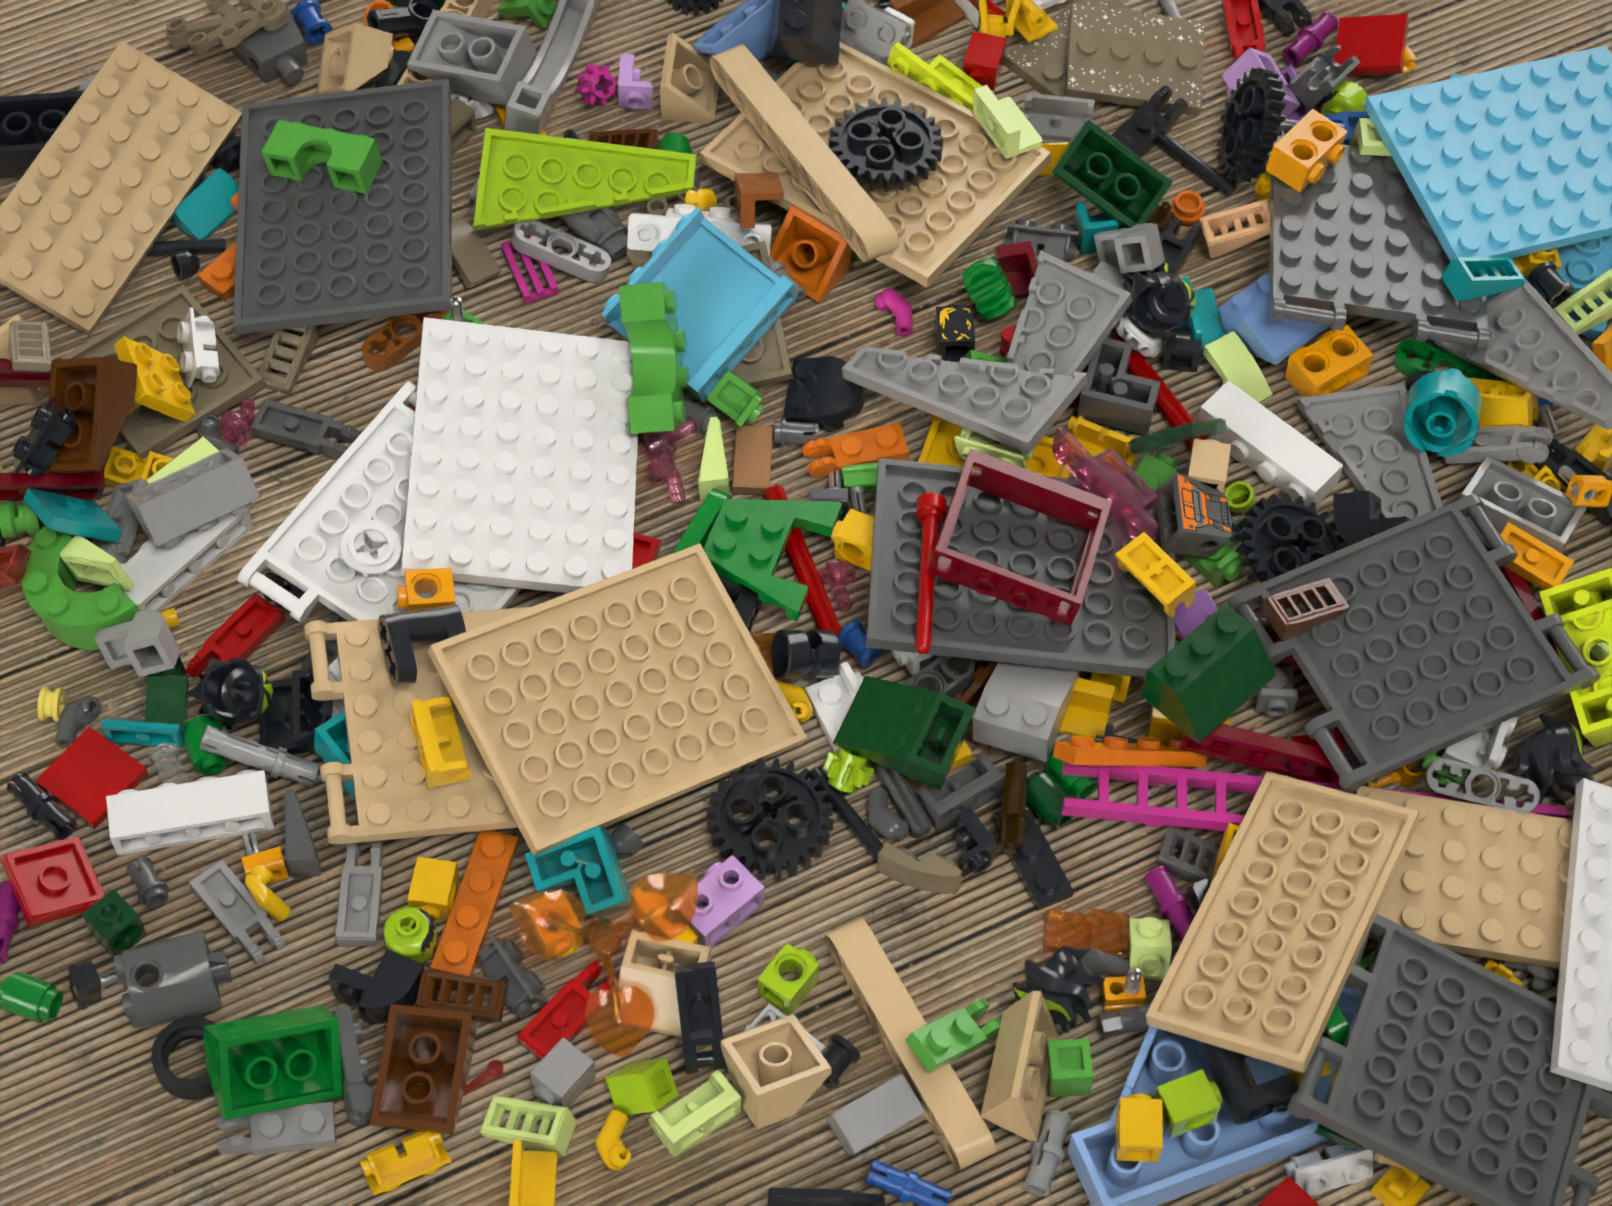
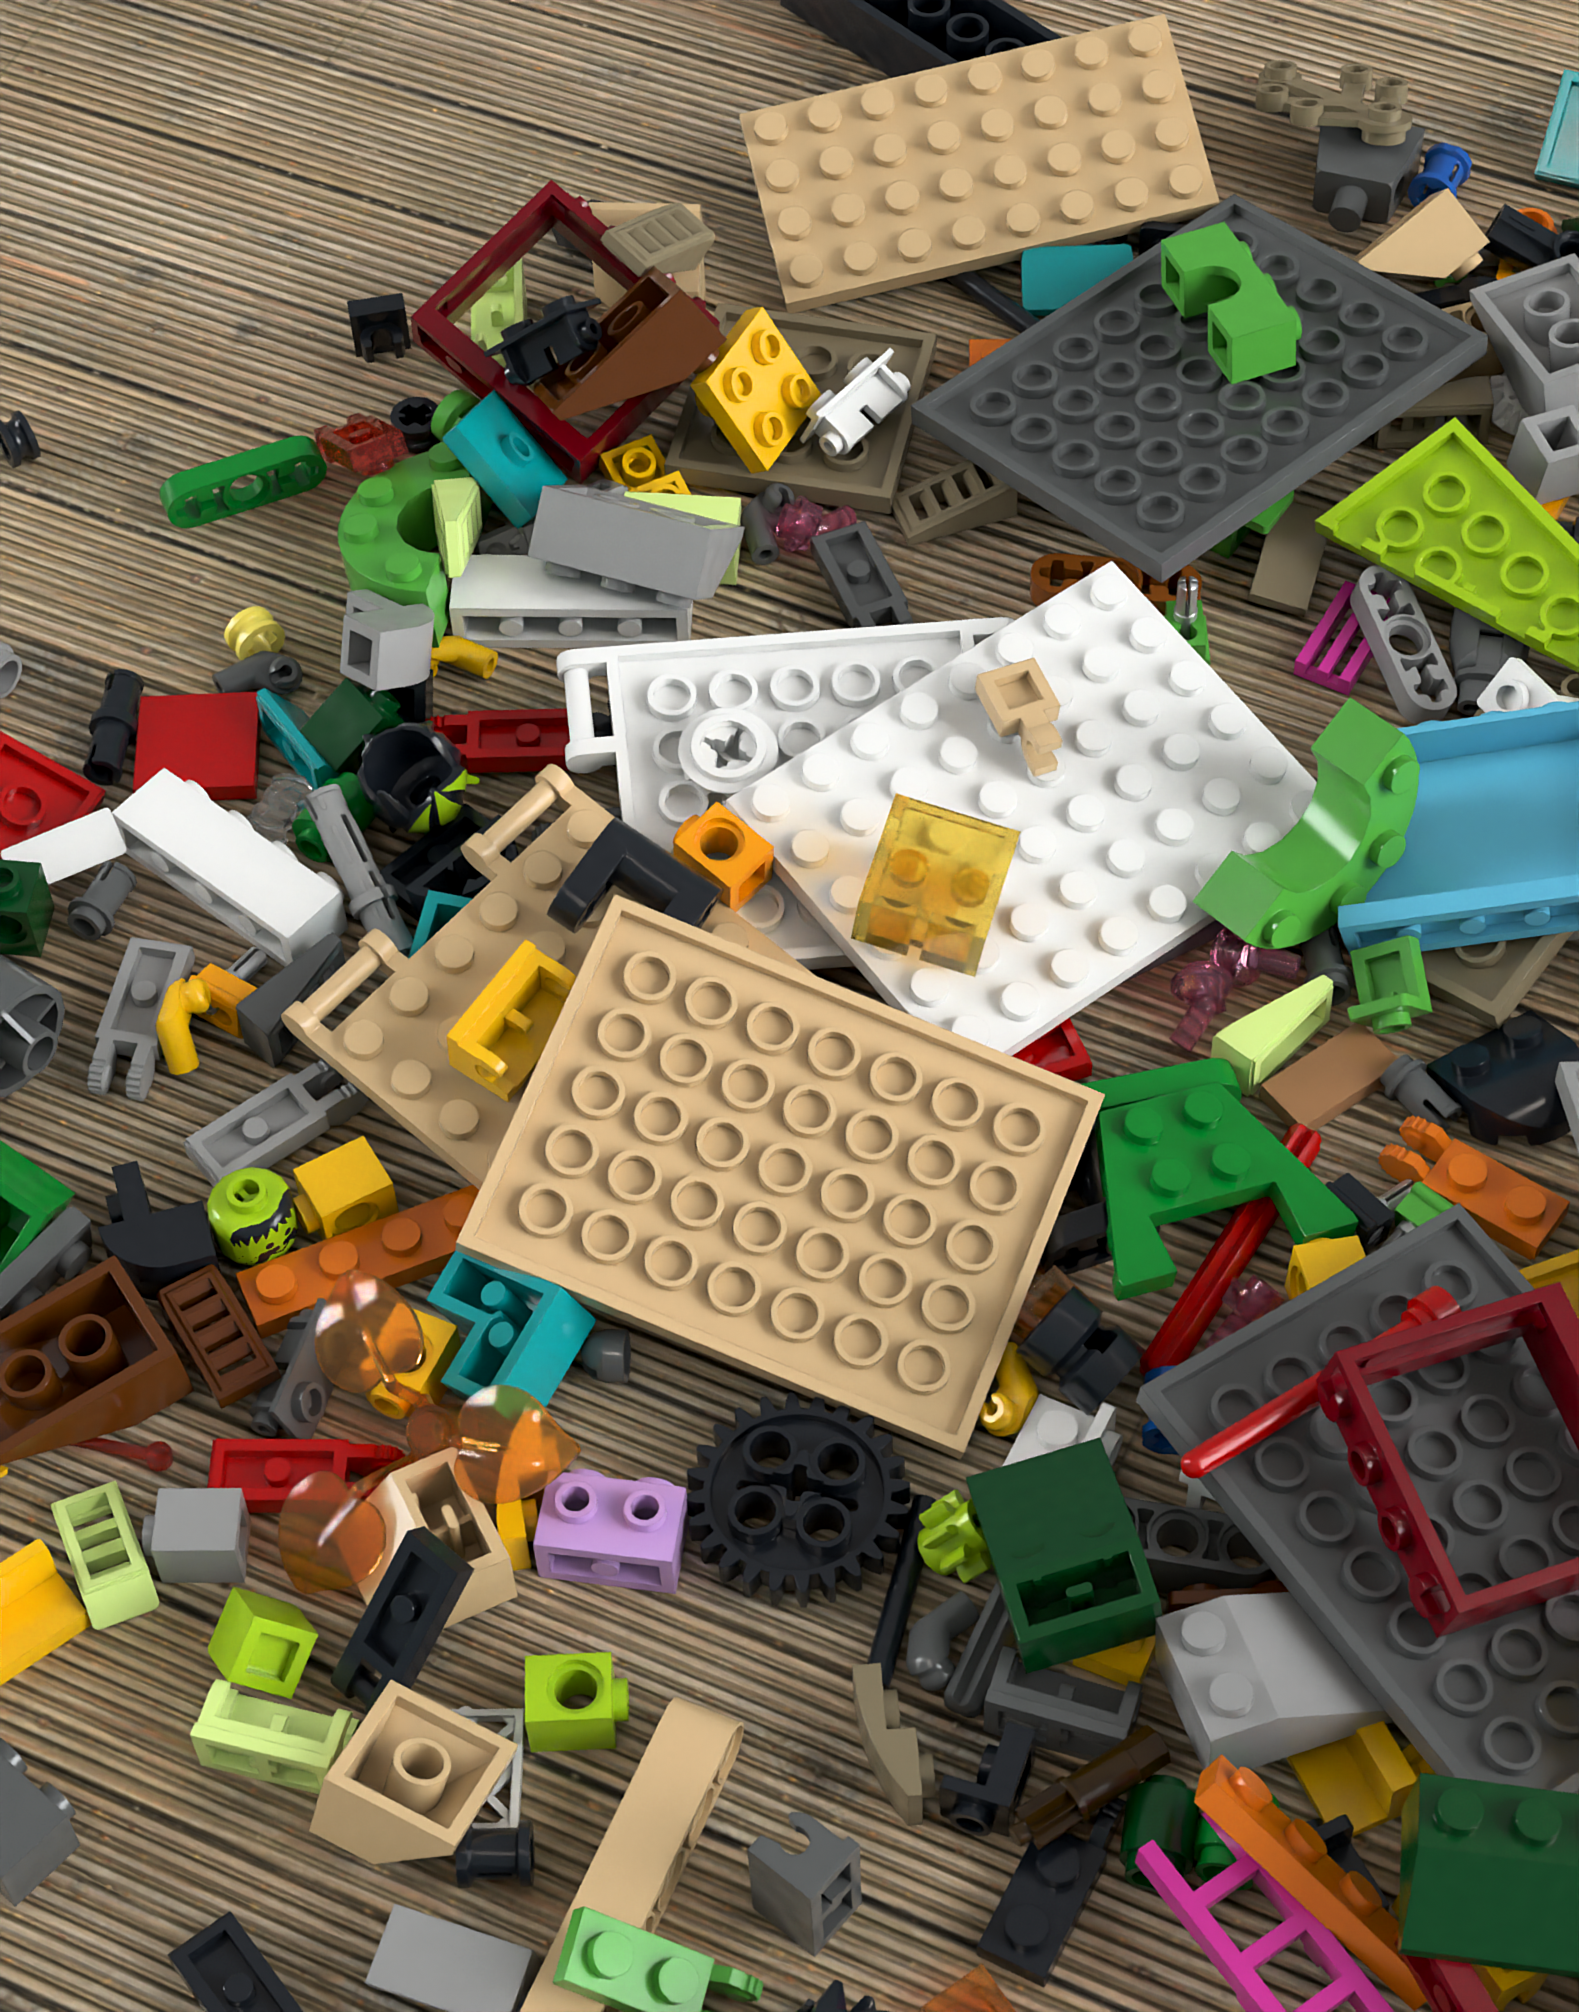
camera: 55 degrees right, 5 degrees down
(105, 873) = (71, 846): none -> white sticker
(185, 263) = (973, 317): black hinge -> none
(476, 410) = (1024, 703): none -> tan plate
(542, 519) = (935, 884): none -> clear yellow piece
(609, 1142) = (153, 1668): yellow arm -> none
(964, 953) = (808, 1891): none -> dark grey hinge

